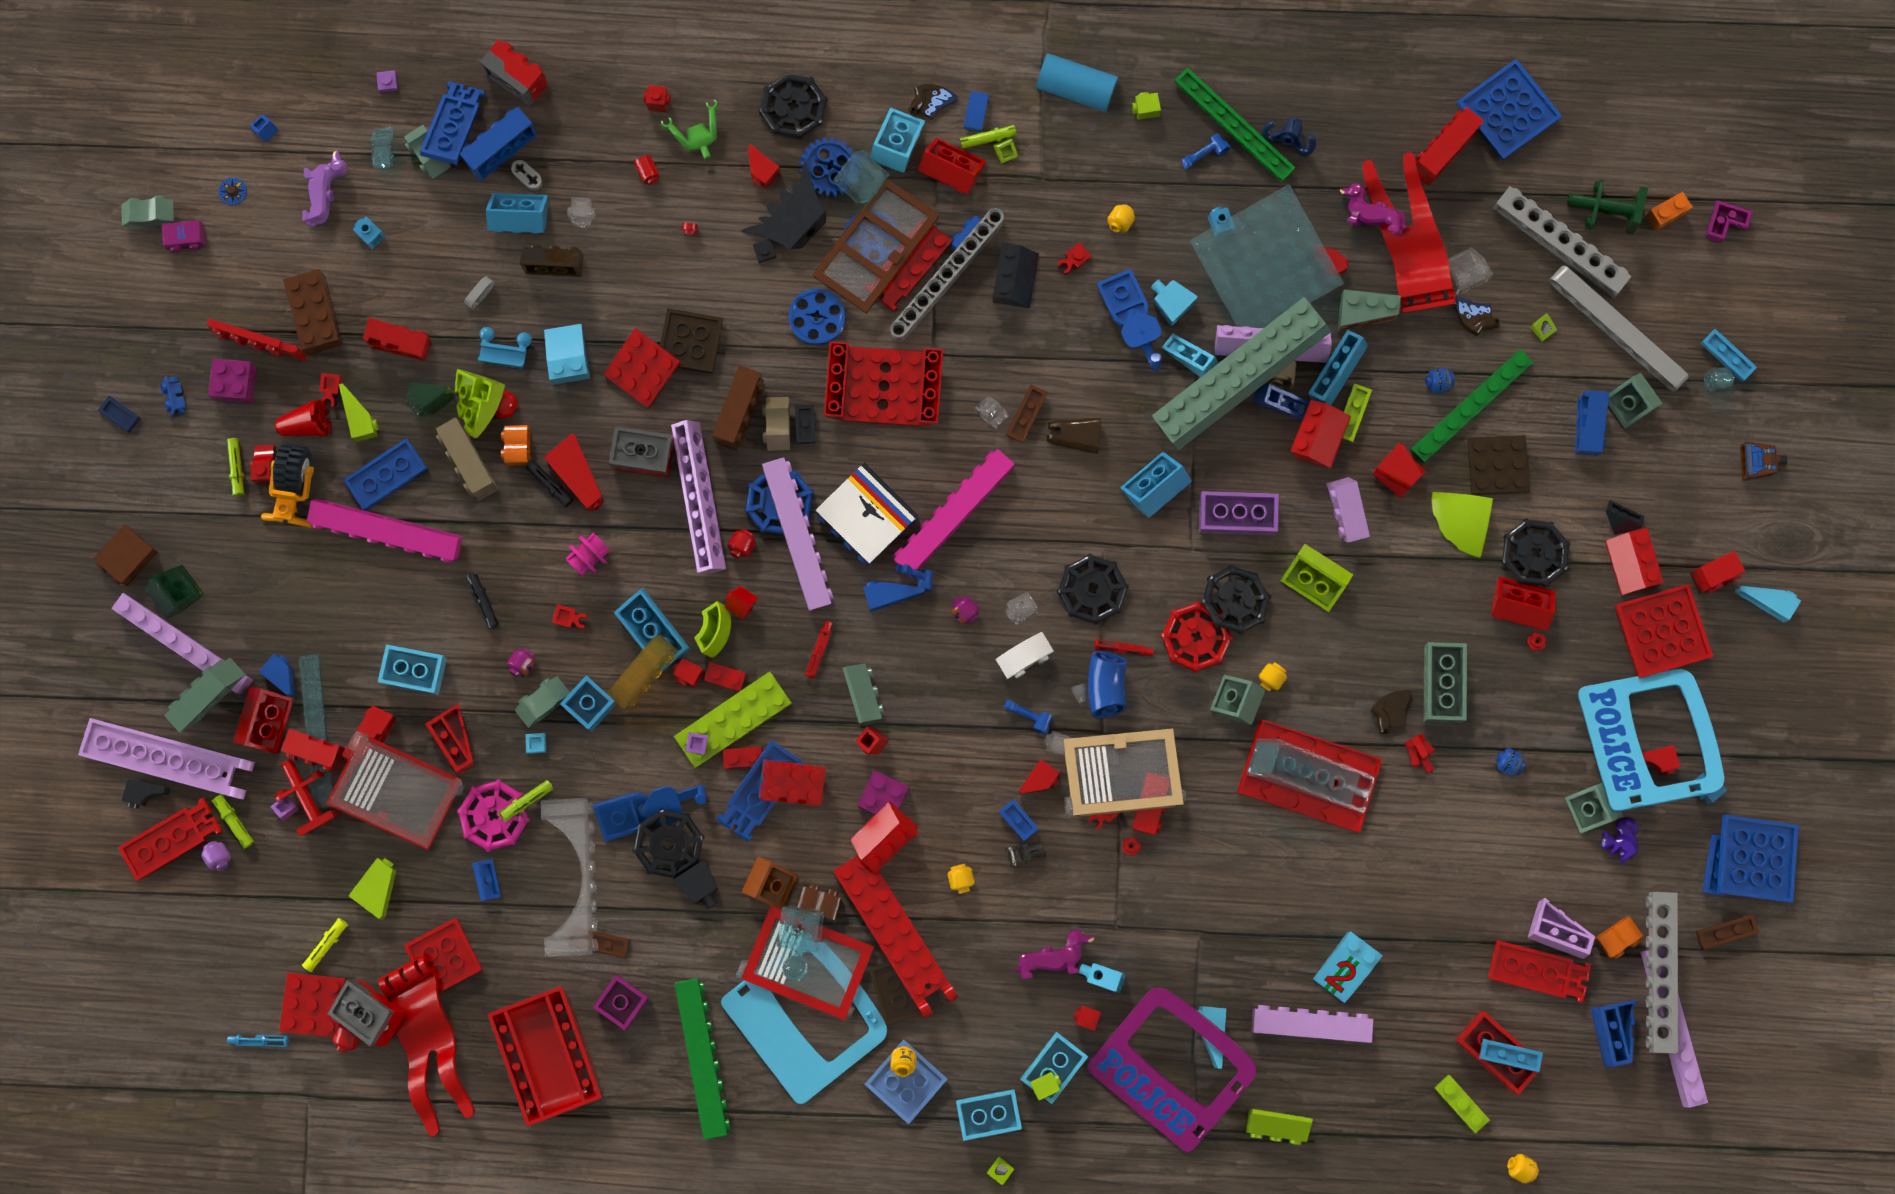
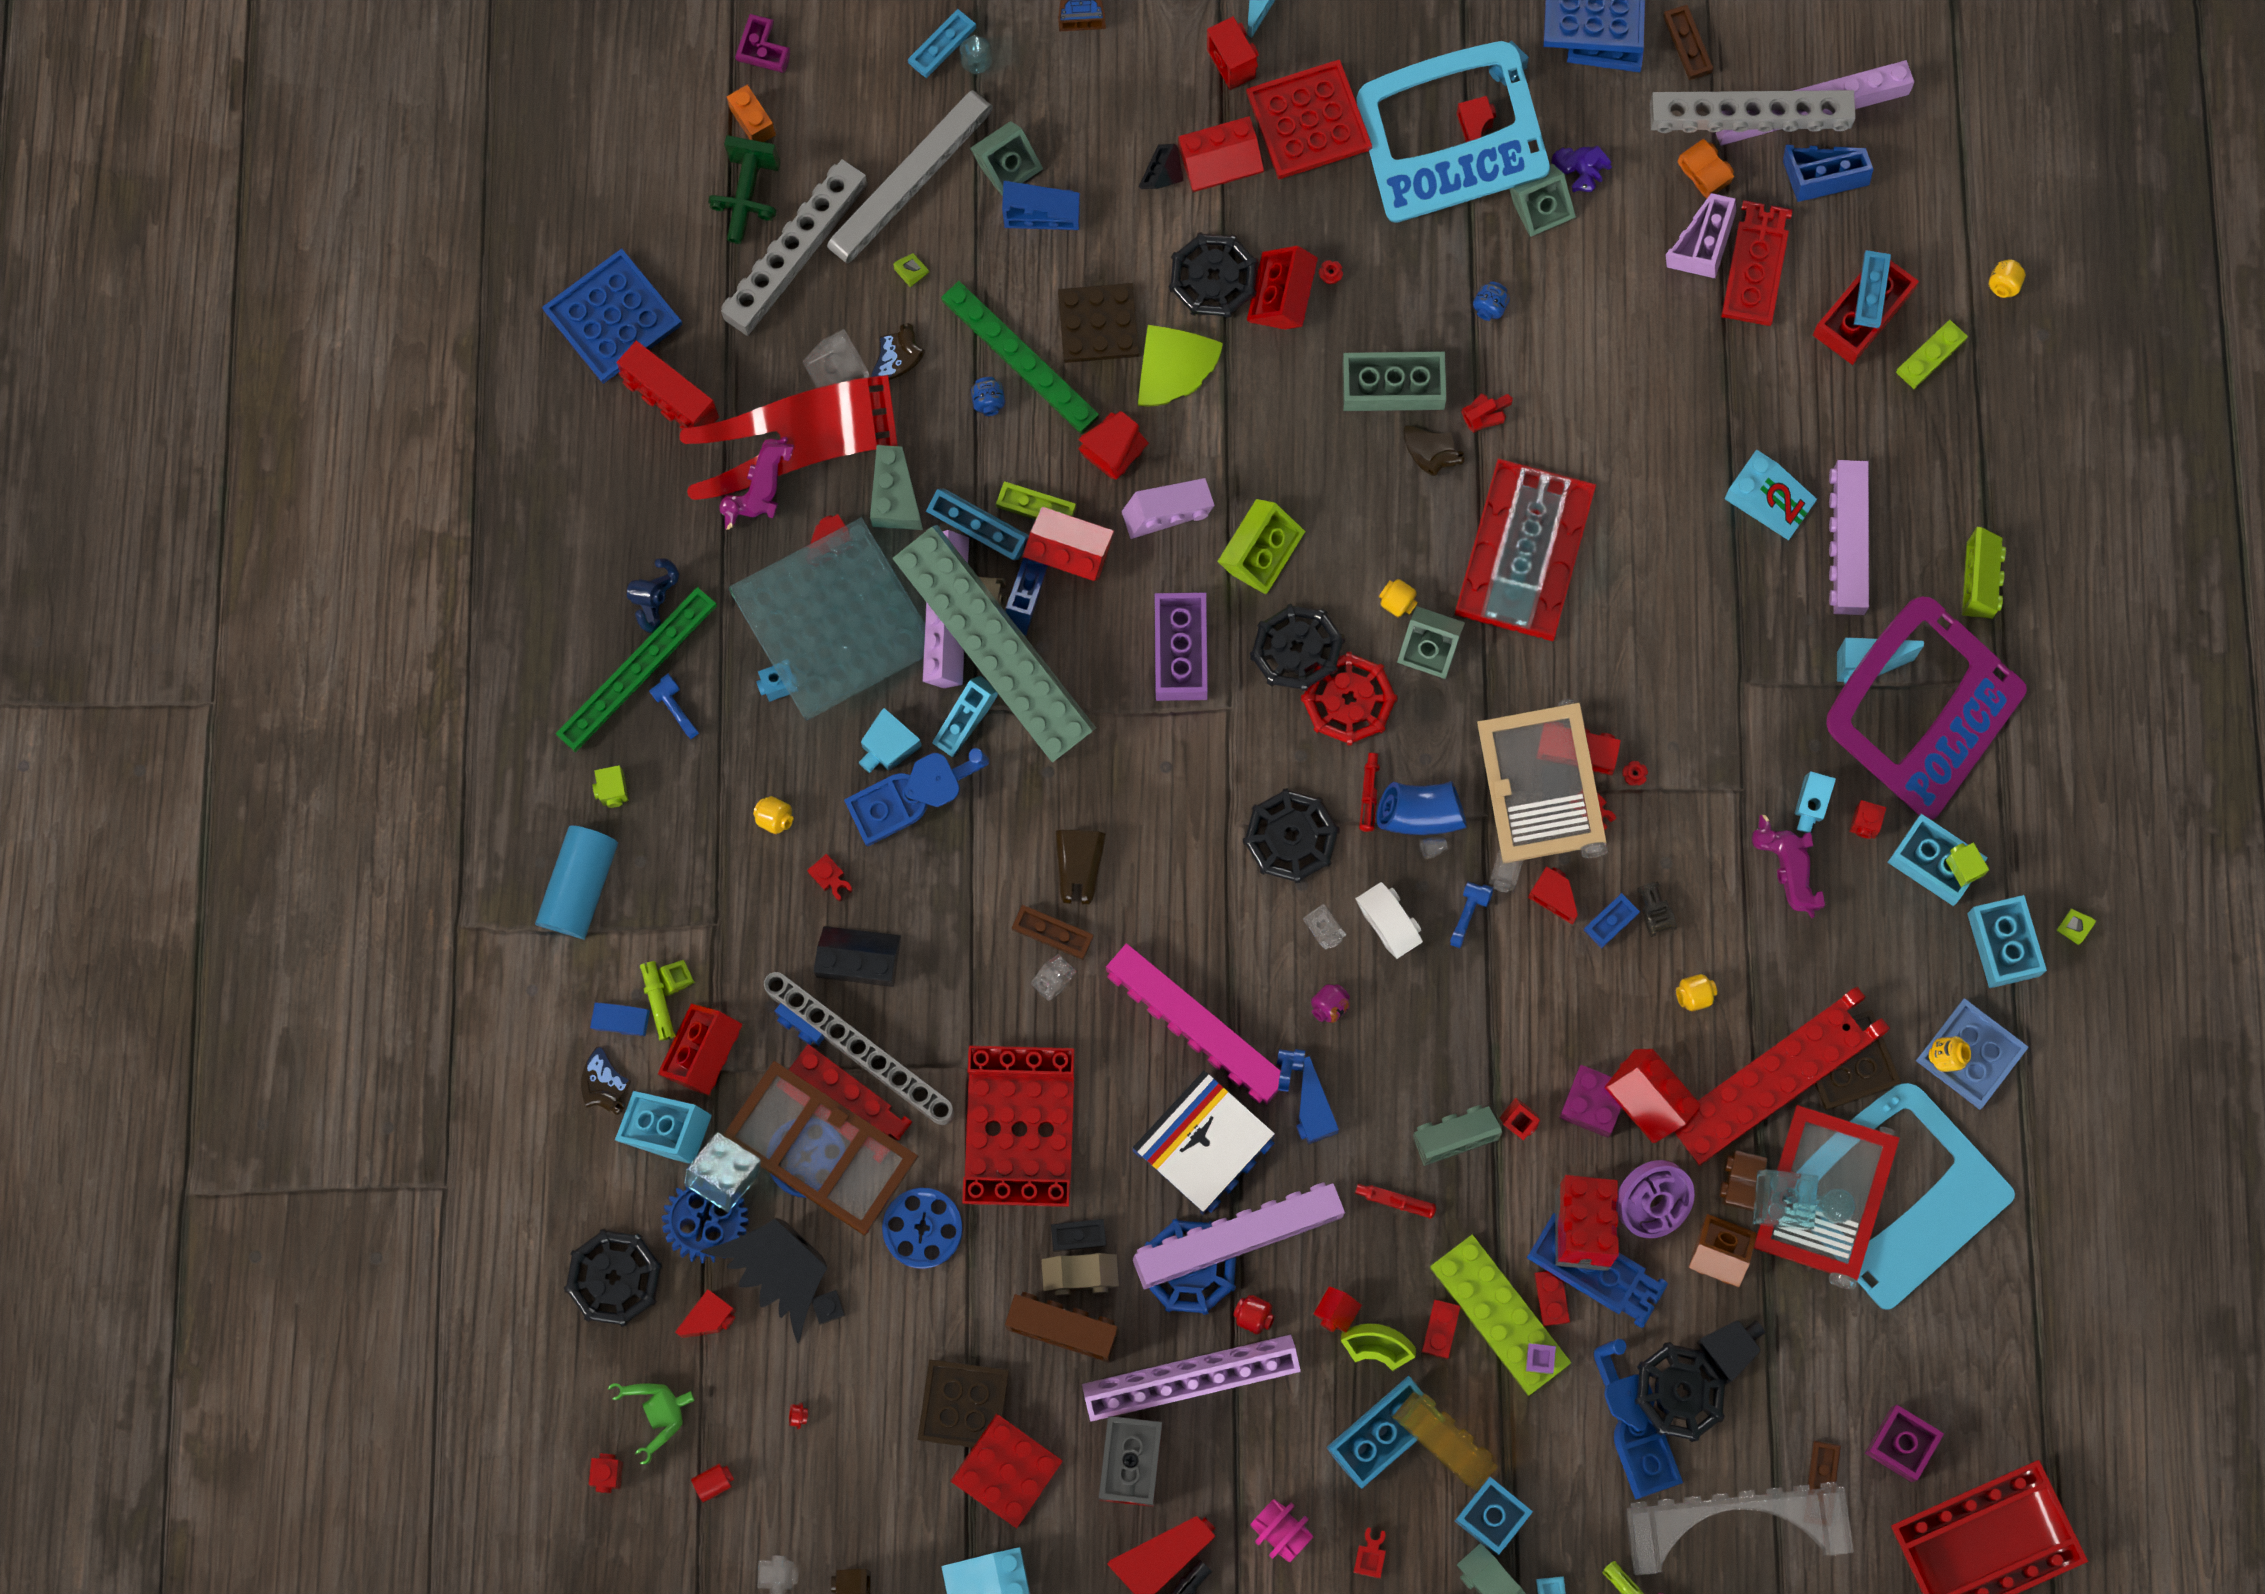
camera: 90 degrees left, 5 degrees down
(687, 672) = (1440, 1380): red brick -> none
(701, 1058) = (1967, 1329): green brick -> none
(819, 833) = (1643, 1186): none -> medium lavender piece
(1156, 484) = (1143, 756): dark azure slope -> none

